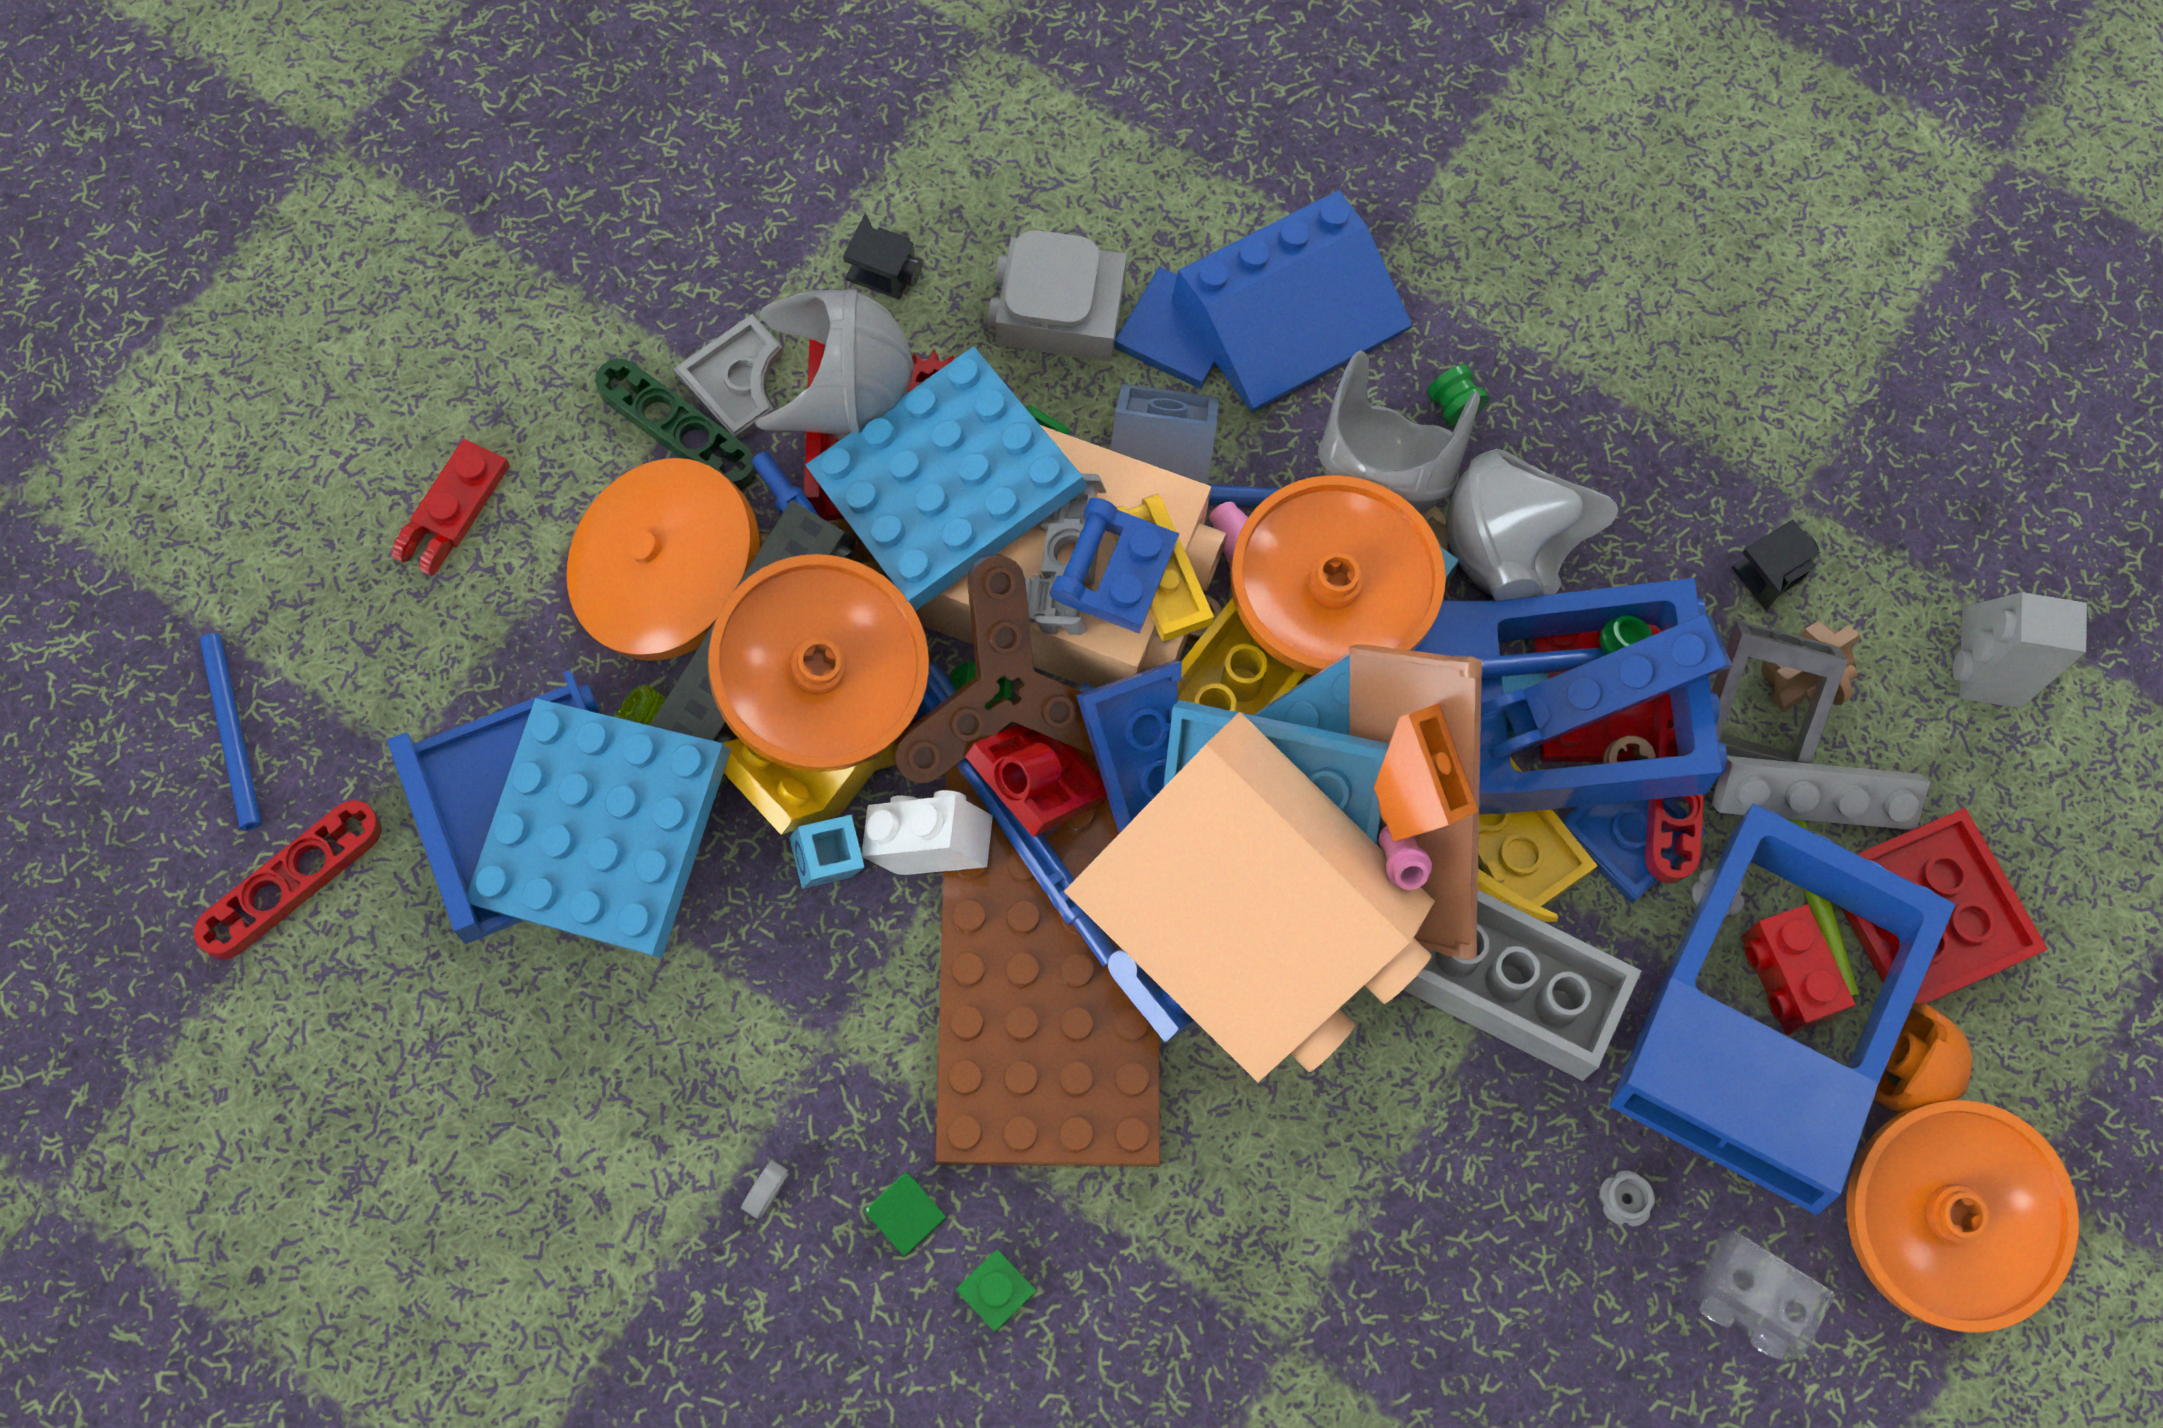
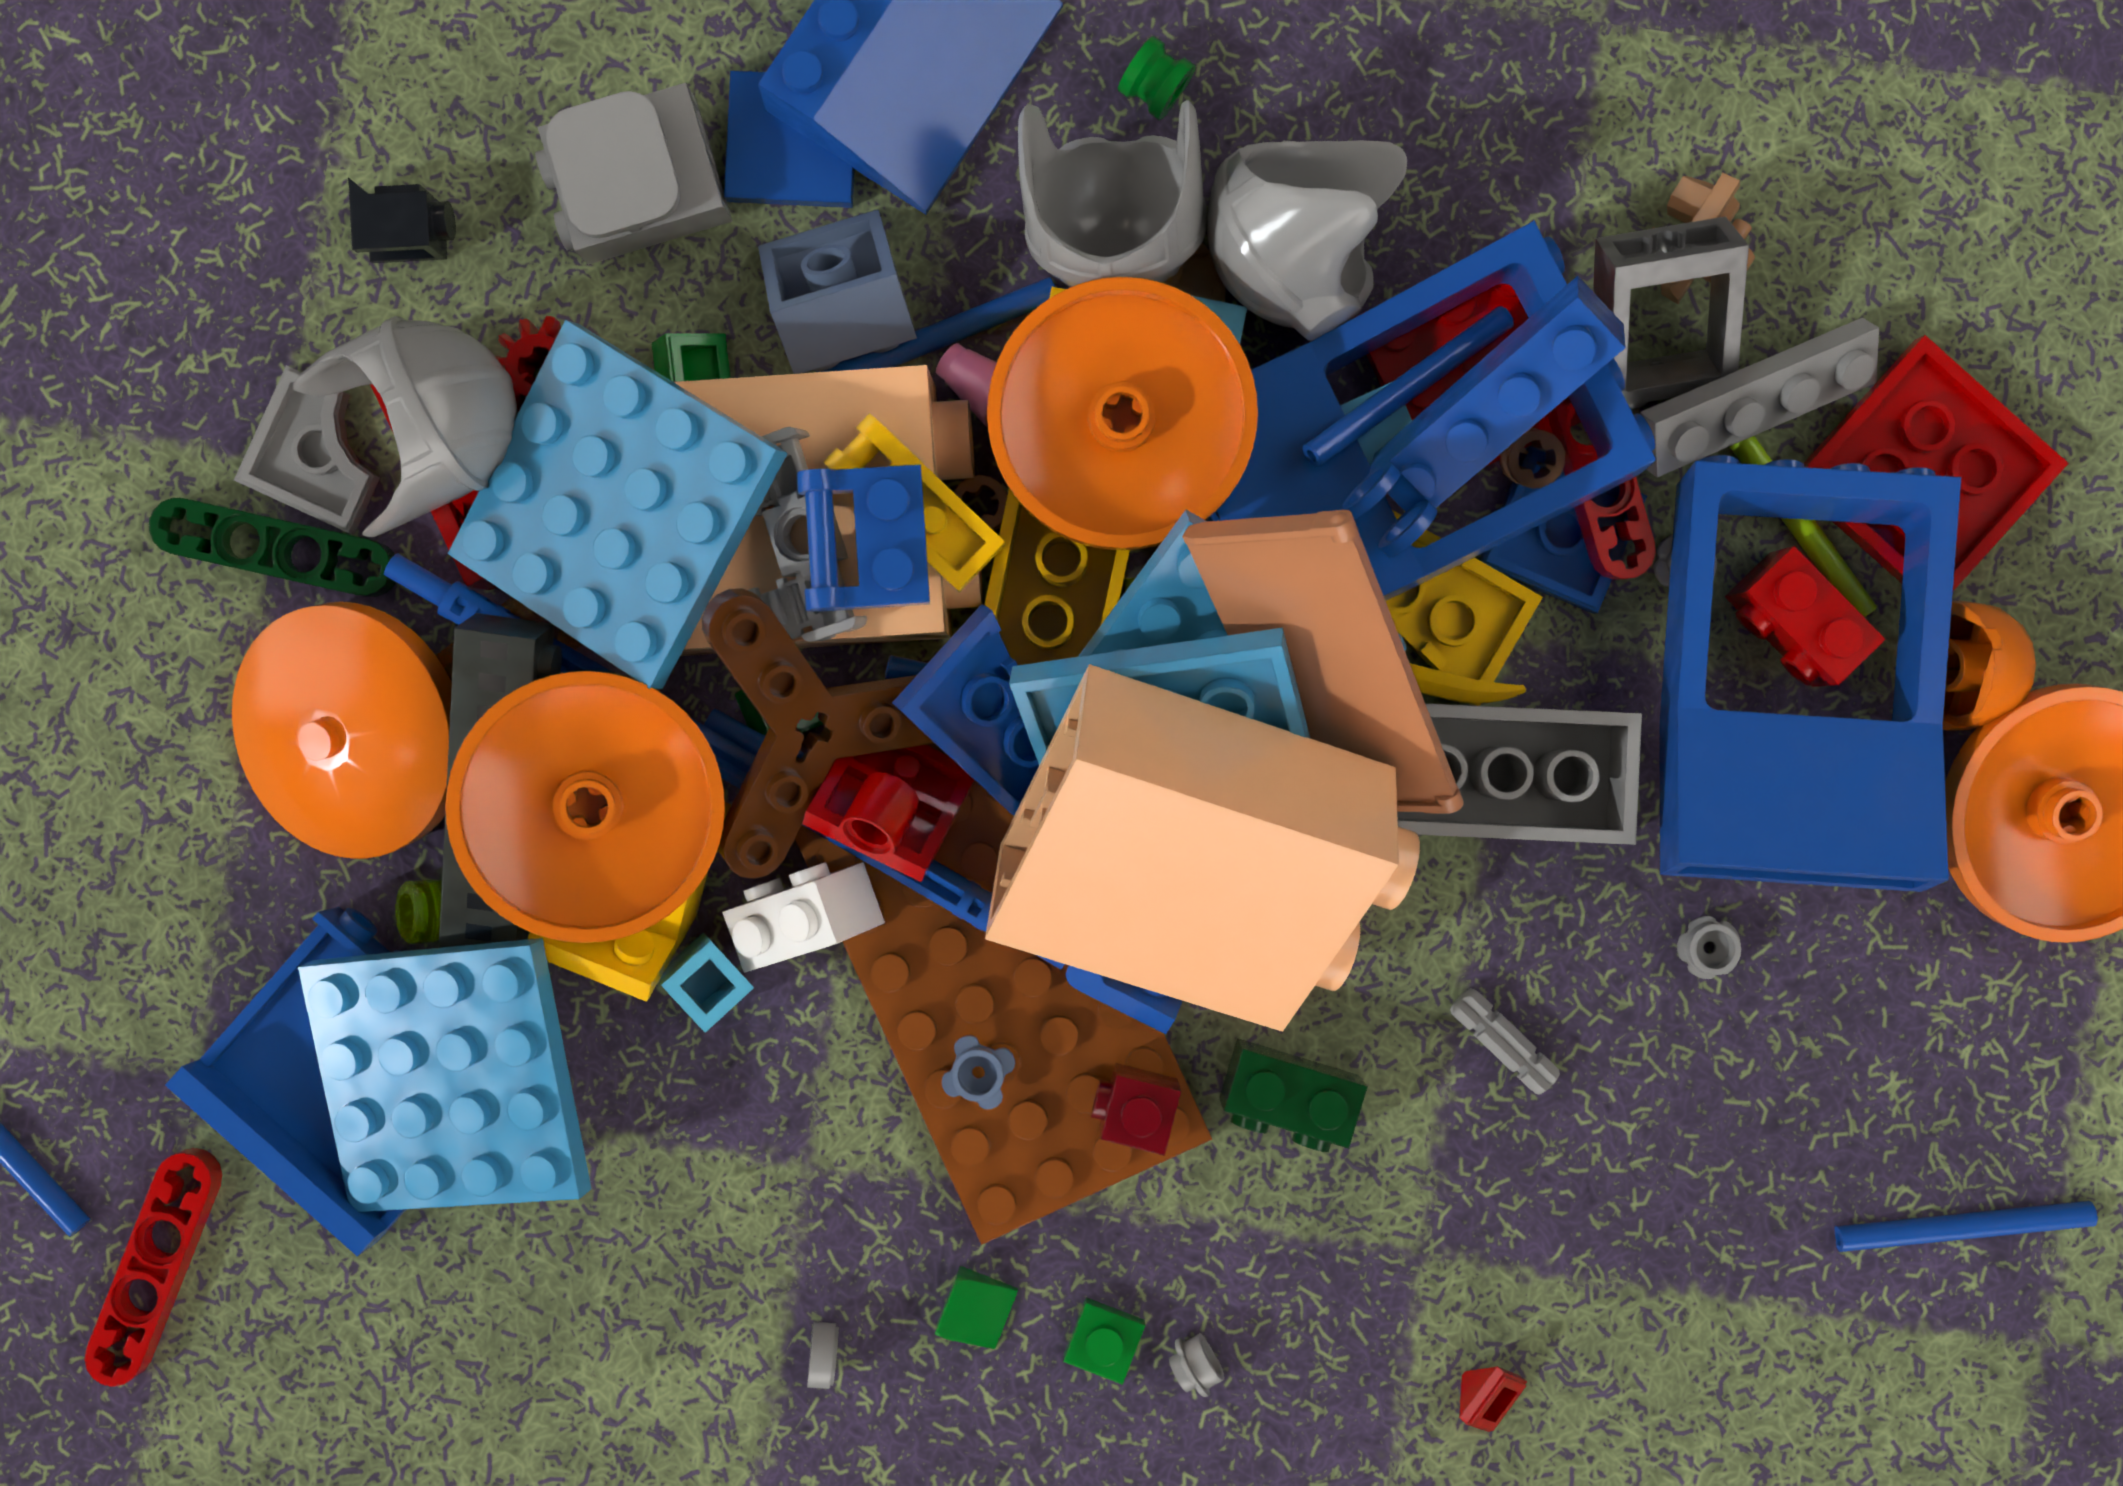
camera: 20 degrees left, 20 degrees up
(451, 505) = (78, 767): red hinge -> none
(1002, 999) = (984, 1089): none -> sand blue plate
(1062, 1344) = (1196, 1365): none -> light grey plate
(1115, 1093) = (1137, 1108): none -> dark red brick
(1240, 1152) = (1292, 1094): none -> dark green brick
(1406, 863) = (1353, 758): bright pink pin -> none
(1422, 777) = (1336, 666): orange slope -> none
(1430, 1198) = (1505, 1041): none -> light grey axle
(1623, 632) = (1479, 323): green plate -> none
(1761, 1296) = (1886, 990): clear brick -> none
(1777, 562) = (1611, 123): black window -> none
(2017, 646) = (1928, 110): light grey wedge -> none

